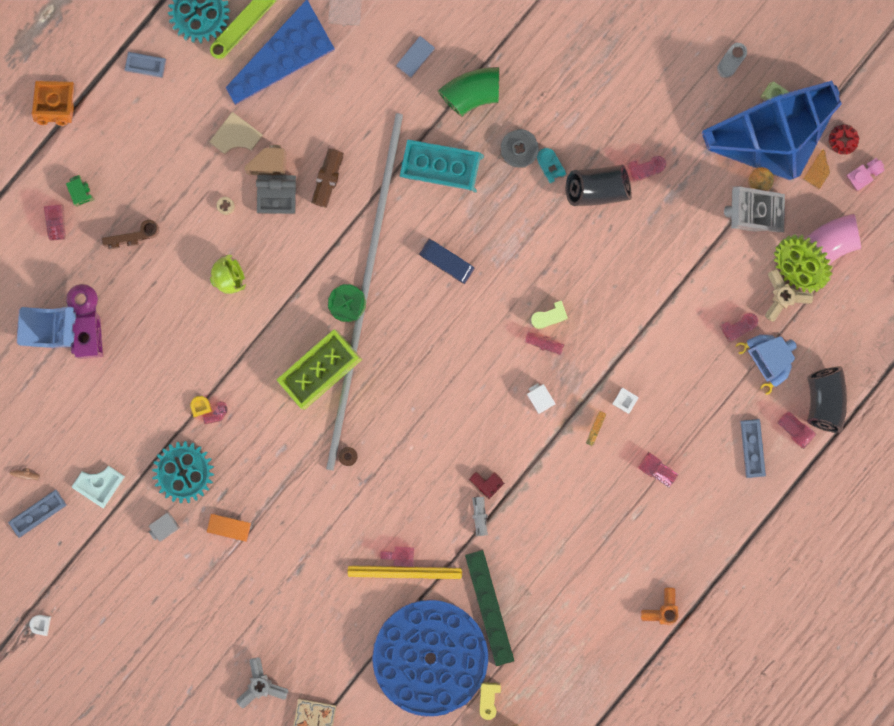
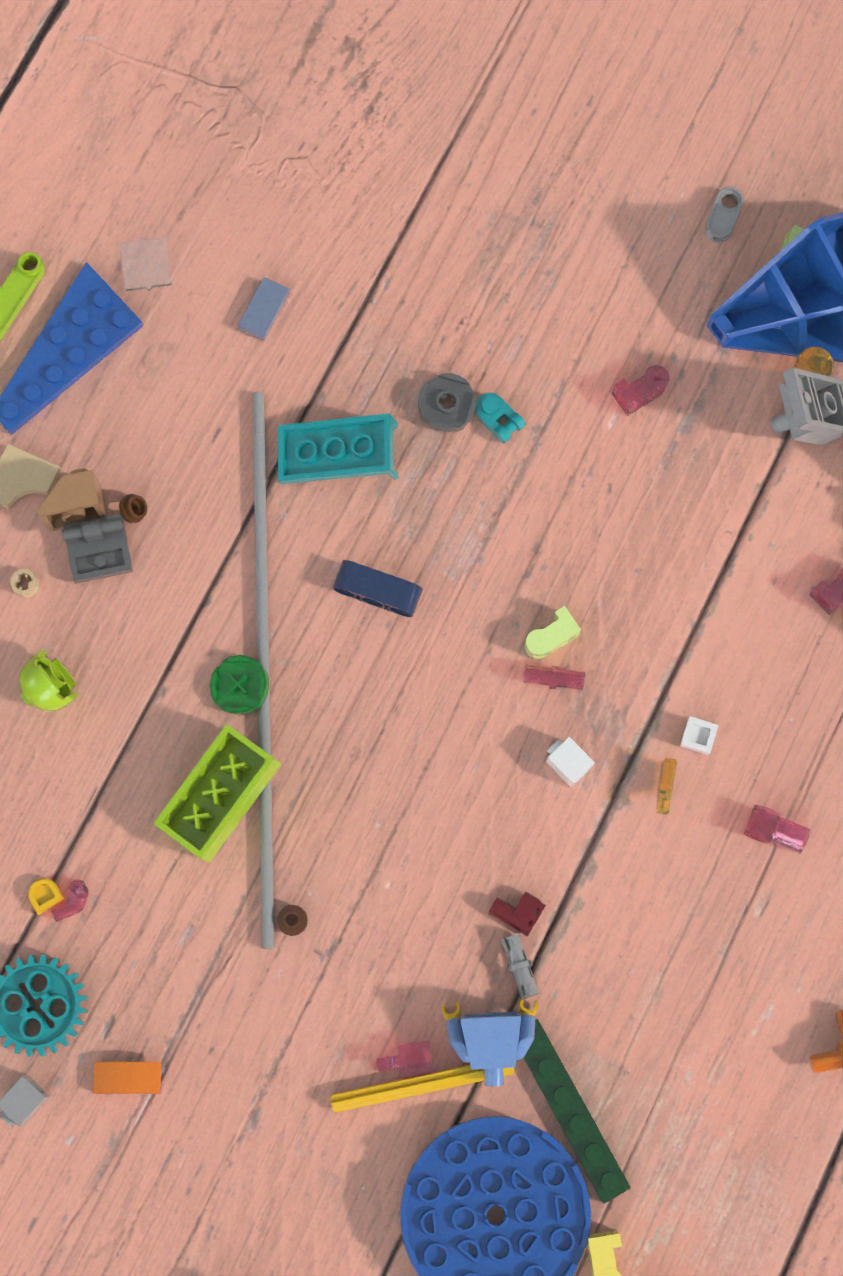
camera: 15 degrees left, 10 degrees down
(303, 173) = (132, 508): none -> reddish brown plate
(327, 178) = (170, 507): reddish brown piece -> none
(452, 556) = (491, 1039): none -> medium blue torso
(472, 90) = (356, 333): green brick -> none
(598, 186) = (576, 427): black brick -> none

